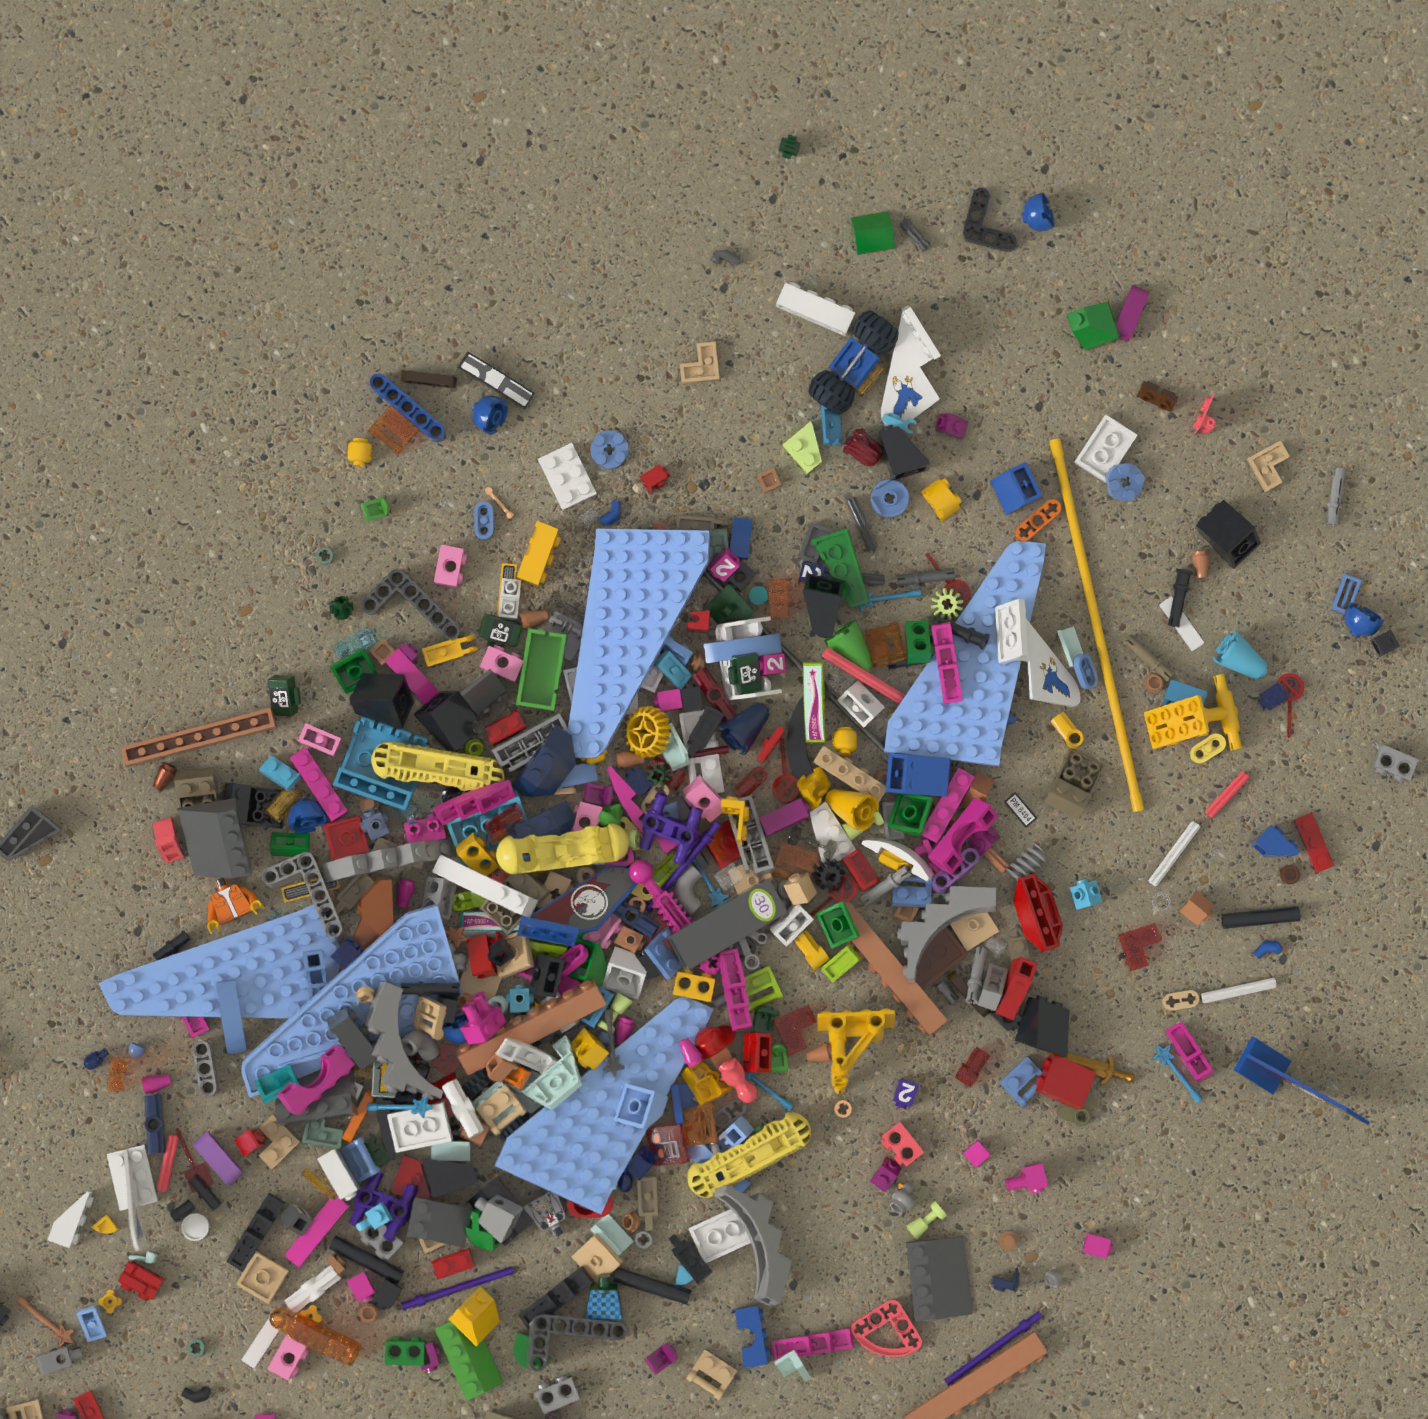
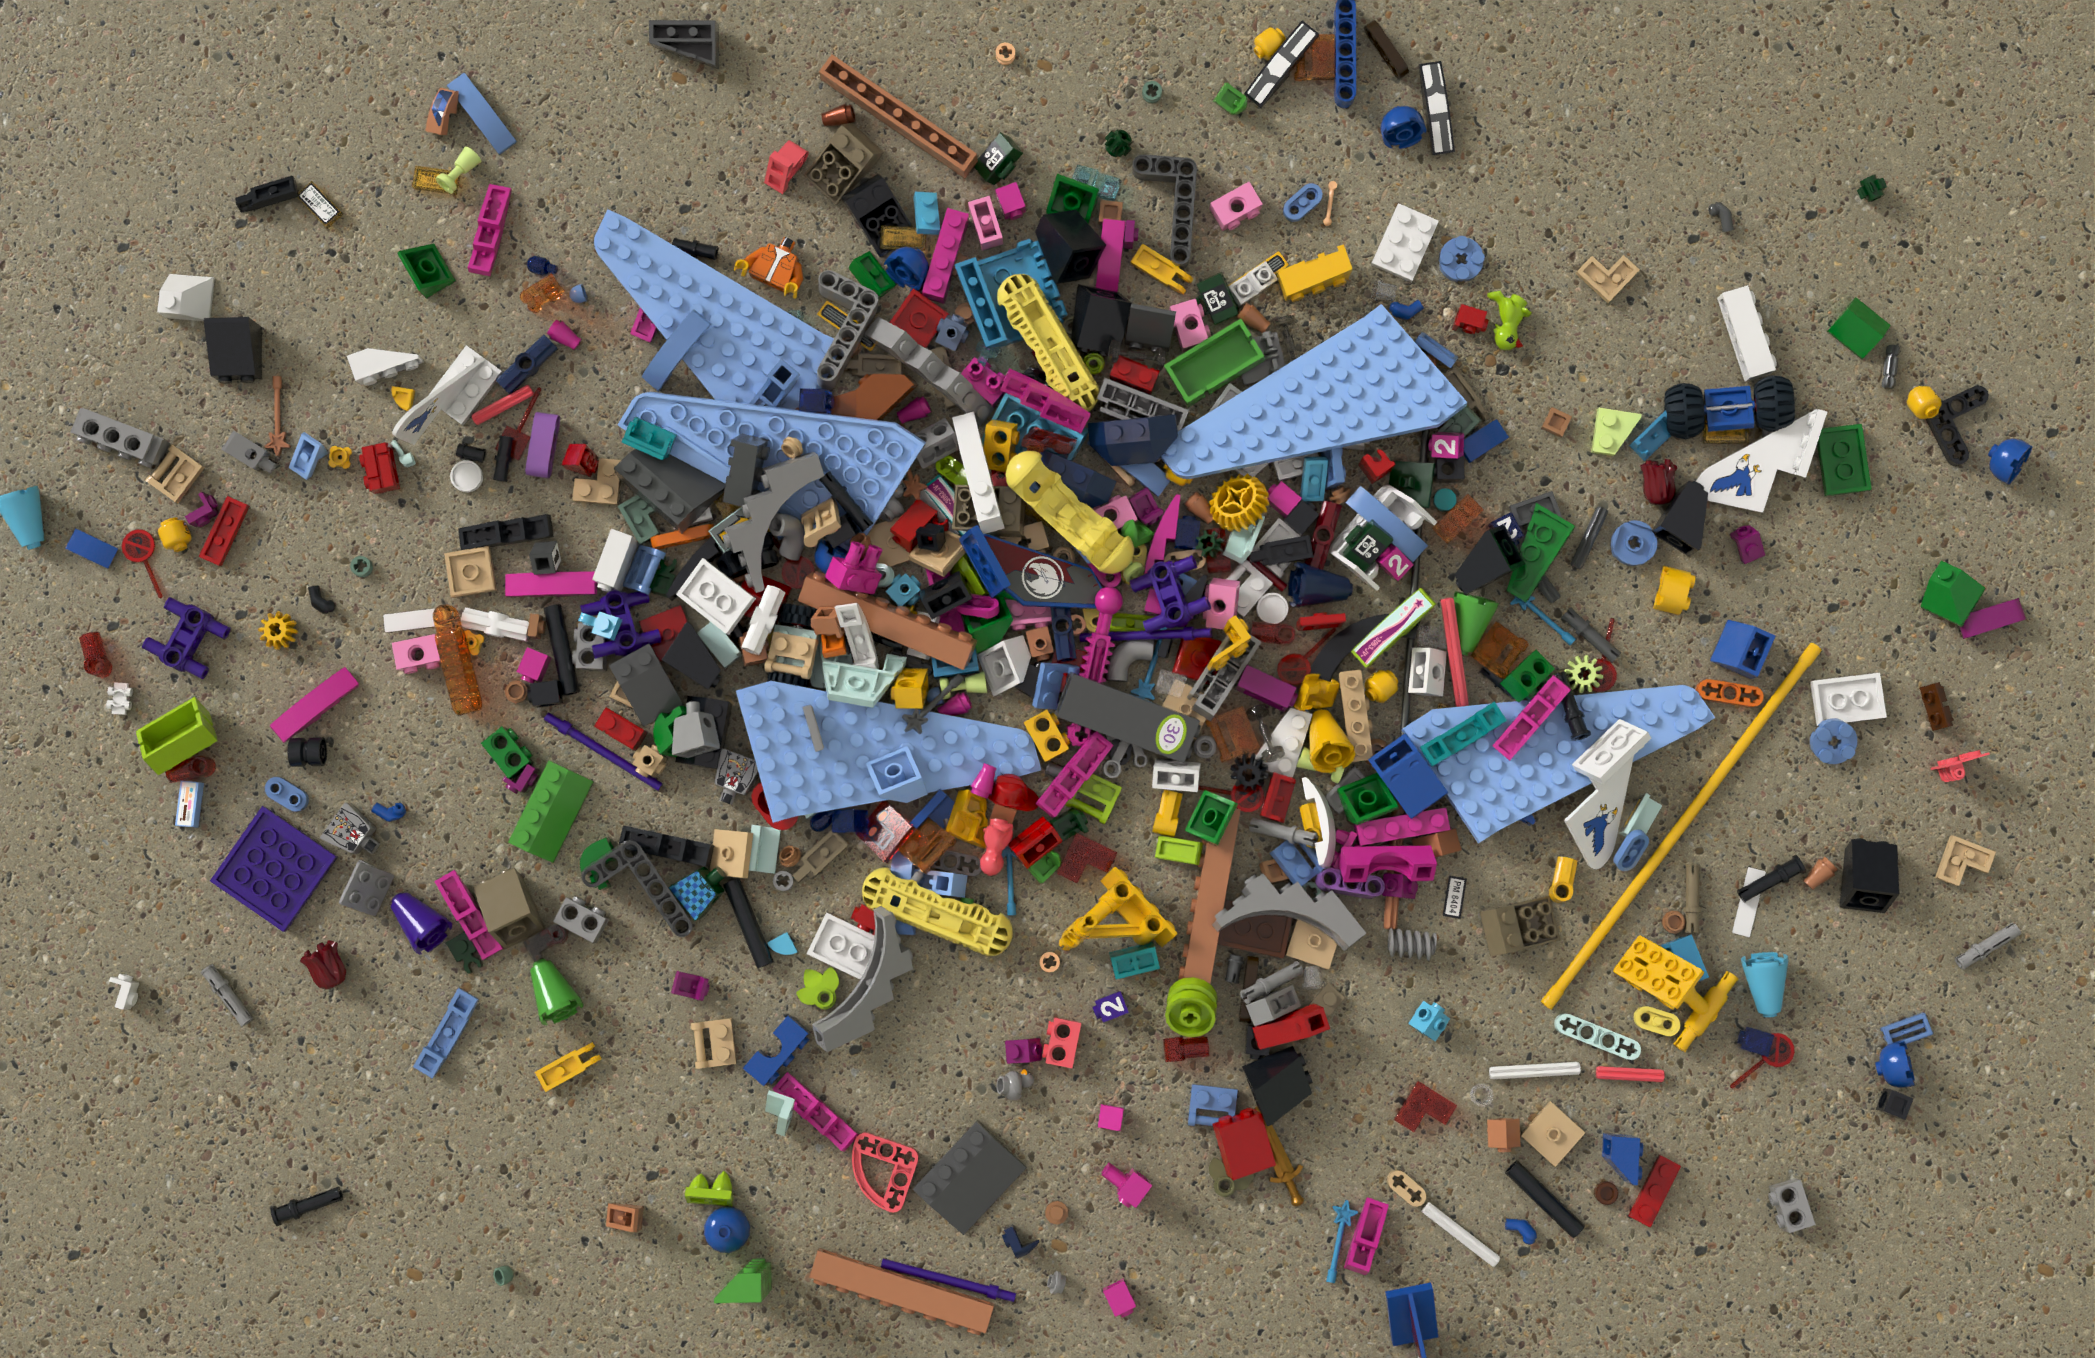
camera: 55 degrees right, 0 degrees up
(32, 1137) = (426, 269): none -> green slope
(41, 1073) = (490, 230): none -> dark pink slope
(199, 1060) = (611, 378): light grey beam -> none
(214, 624) = (1010, 49): none -> light nougat bush
(215, 839) = (820, 204): dark grey slope -> none
(319, 711) = (1010, 201): none -> dark pink brick
(319, 1183) = (593, 550): clear yellow tile -> none
(334, 1065) = (707, 474): dark pink arch -> none
(380, 456) = (1281, 64): none -> slope
(419, 1107) = (731, 580): dark azure piece -> none
(476, 1316) = (590, 788): yellow slope -> none
(497, 1258) = (655, 767): none -> tan brick
(565, 1136) = (813, 728): none -> light grey tile
(655, 517) = (1436, 349): none -> medium blue tile
(674, 449) = (1511, 314): none -> lime animal
(690, 1259) = (799, 937): black hinge -> none
(714, 1206) = (864, 917): none -> red brick
(730, 1274) = (817, 985): none -> lime plate
(734, 768) = (1272, 608): none -> white piece
(800, 888) = (1214, 756): tan brick -> none
(820, 1054) = (1081, 899): nougat cone -> none
(888, 1052) = (1134, 960): none -> teal hinge
(893, 419) = (1709, 486): medium azure plate -> none
(920, 1225) = (1002, 1120): yellowish green piece -> none
(921, 716) = (1463, 734): none -> teal slope
(949, 318) = (1843, 460): none -> green plate
(949, 1041) = (1191, 1007): none -> lime wheel
(956, 235) = (1923, 401): none -> yellow head
(1037, 912) = (1375, 990): red wedge -> none
(1187, 797) = (1598, 1034): none -> light aqua beam
(1223, 877) = (1552, 1134): none -> tan plate

